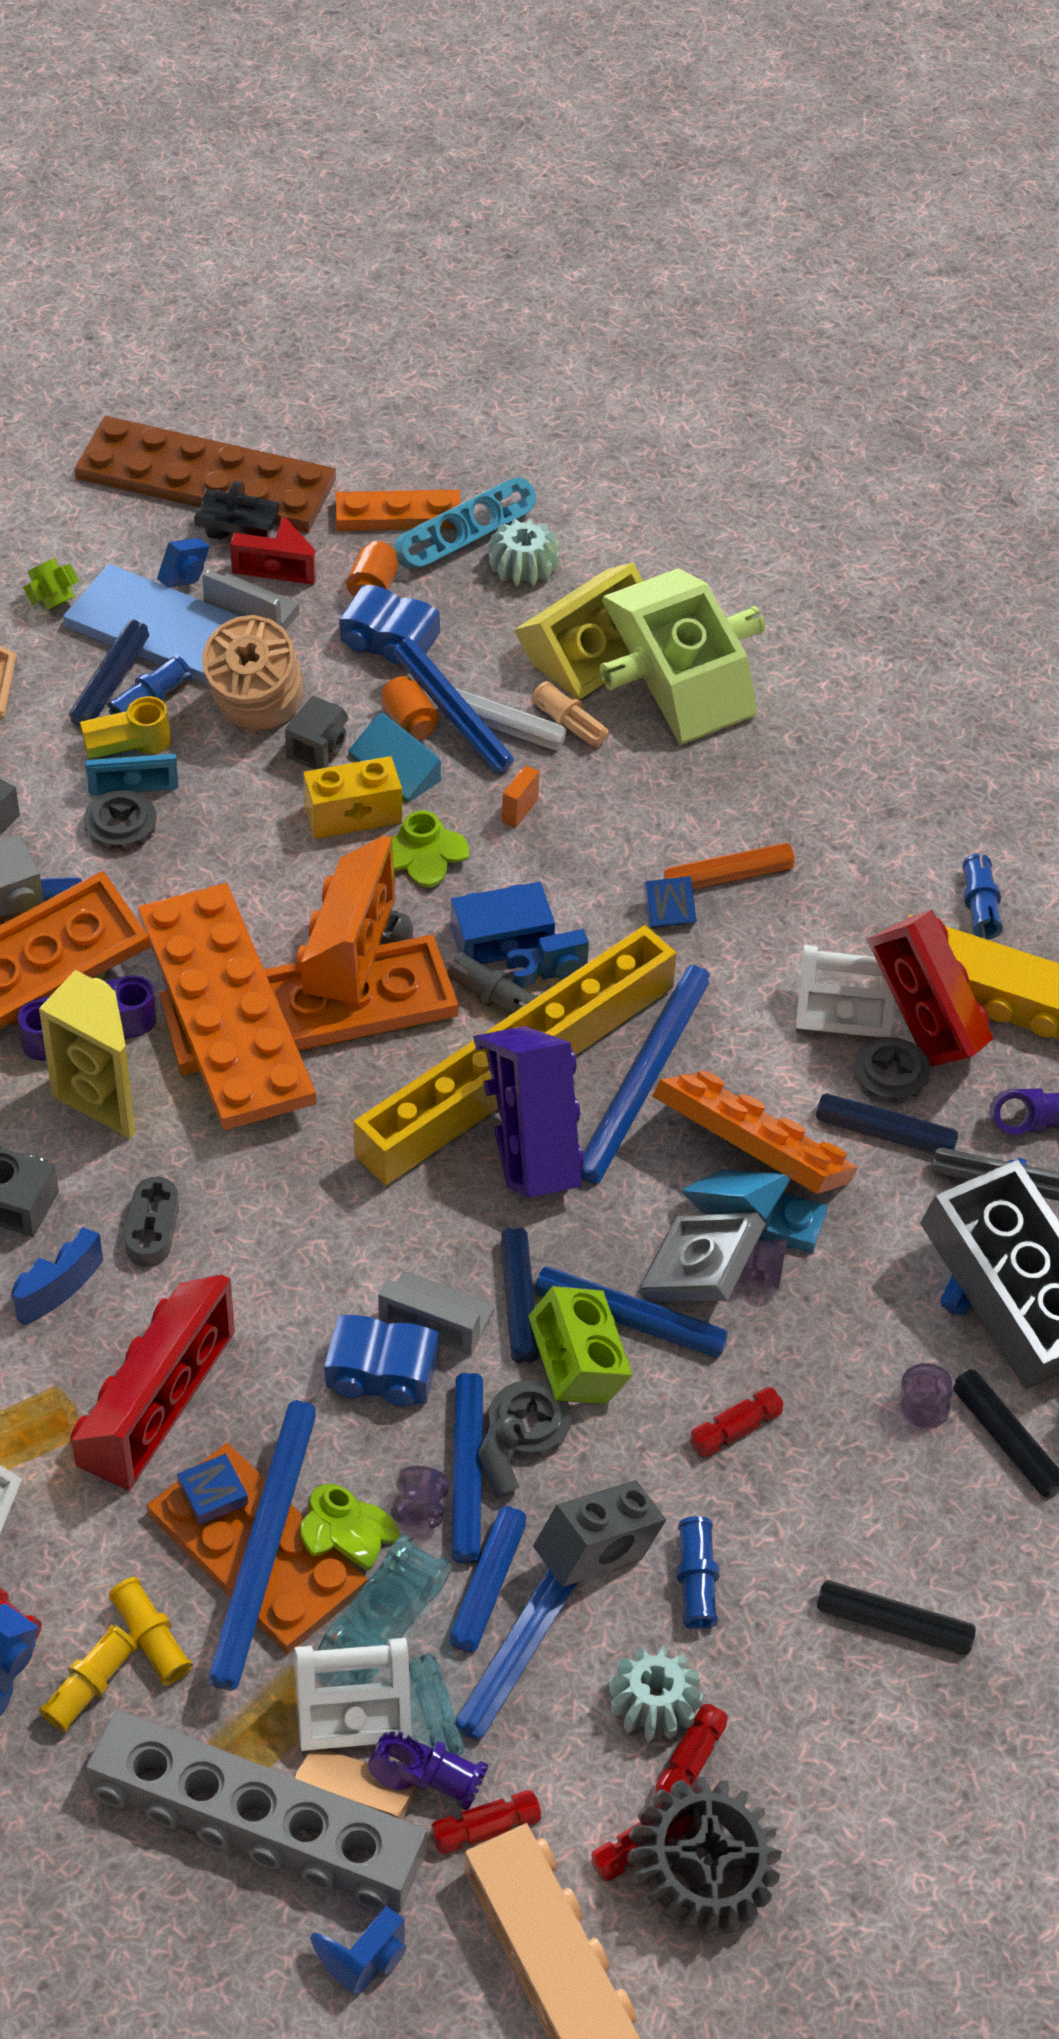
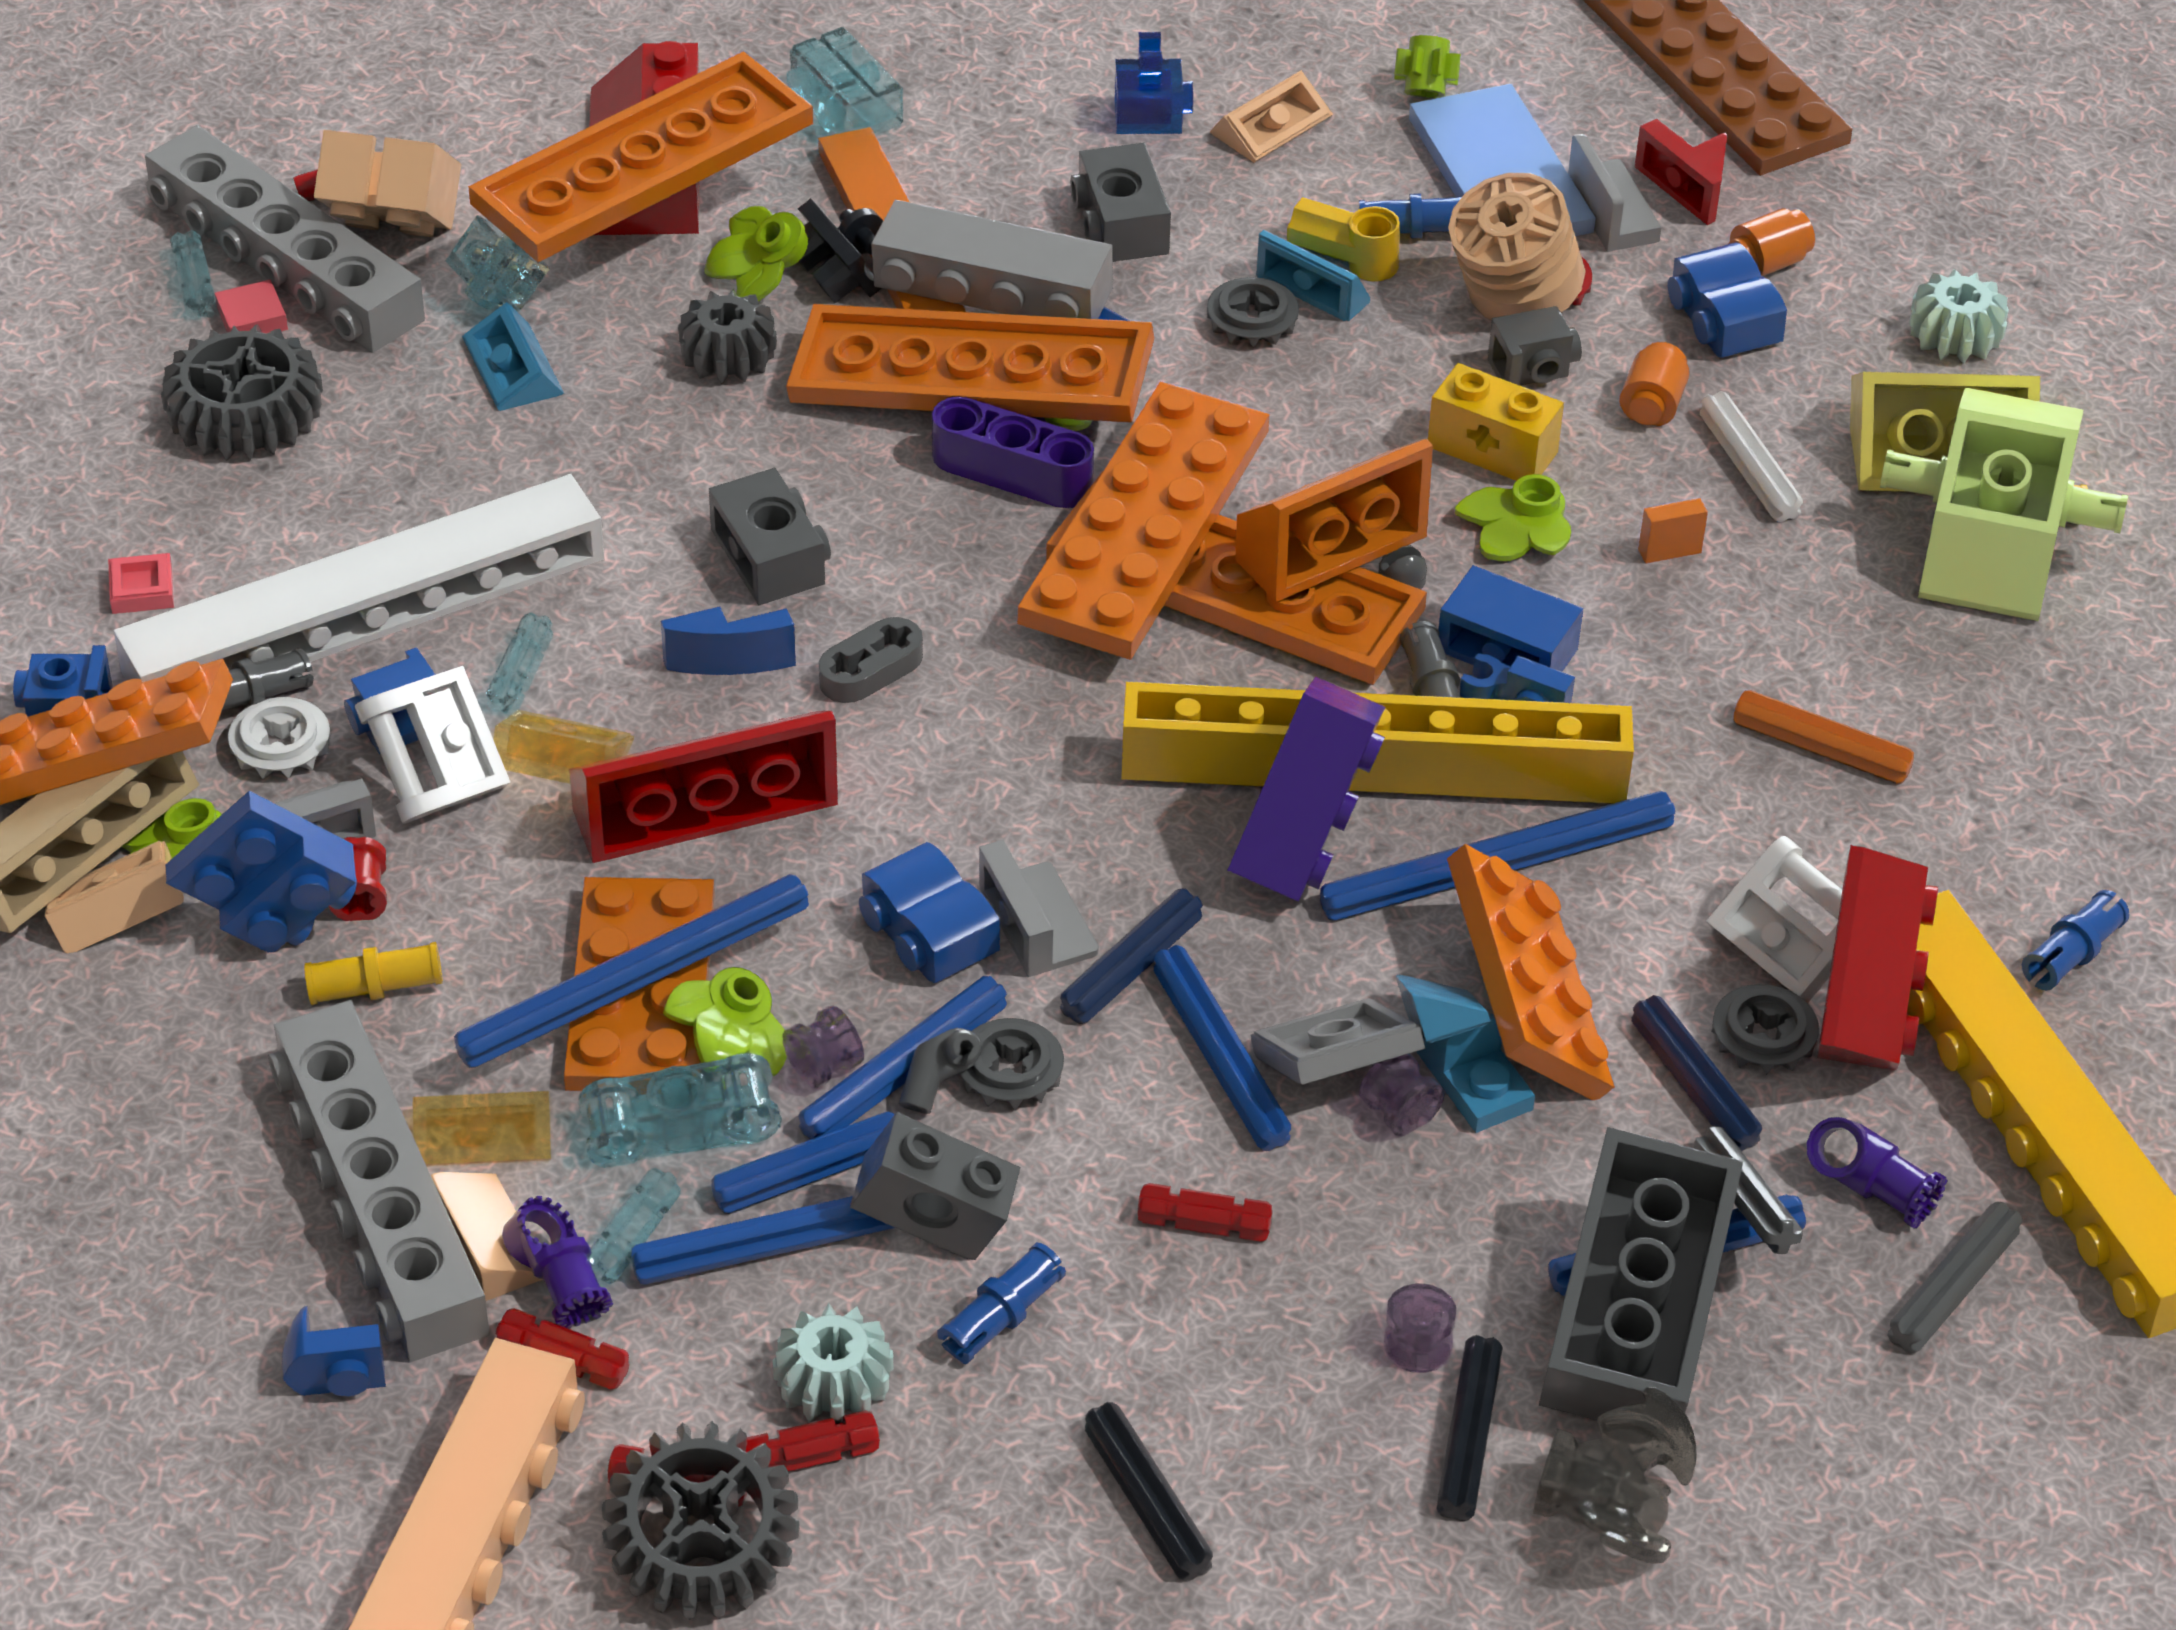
camera: 45 degrees right, 5 degrees down
(88, 1052) = (957, 462): light yellow slope -> none
(110, 672) = (1396, 175): dark blue axle -> none
(150, 1630) = (467, 974): yellow pin -> none
(183, 562) = (1580, 114): blue plate -> none
(212, 1489) = (643, 897): blue tile -> none
(235, 513) = (1687, 105): black hips -> none
(352, 1712) = (546, 1164): white plate -> none
(392, 509) = (1877, 206): orange plate -> none
(414, 763) = (1591, 424): dark azure slope -> none
(453, 706) = (1701, 406): blue axle -> none
(464, 521) = (1928, 246): medium azure beam -> none
(569, 714) = (1824, 492): light nougat axle -> none
(580, 1345) = (1115, 1023): lime brick -> none
(670, 902) = (1714, 723): blue tile -> none

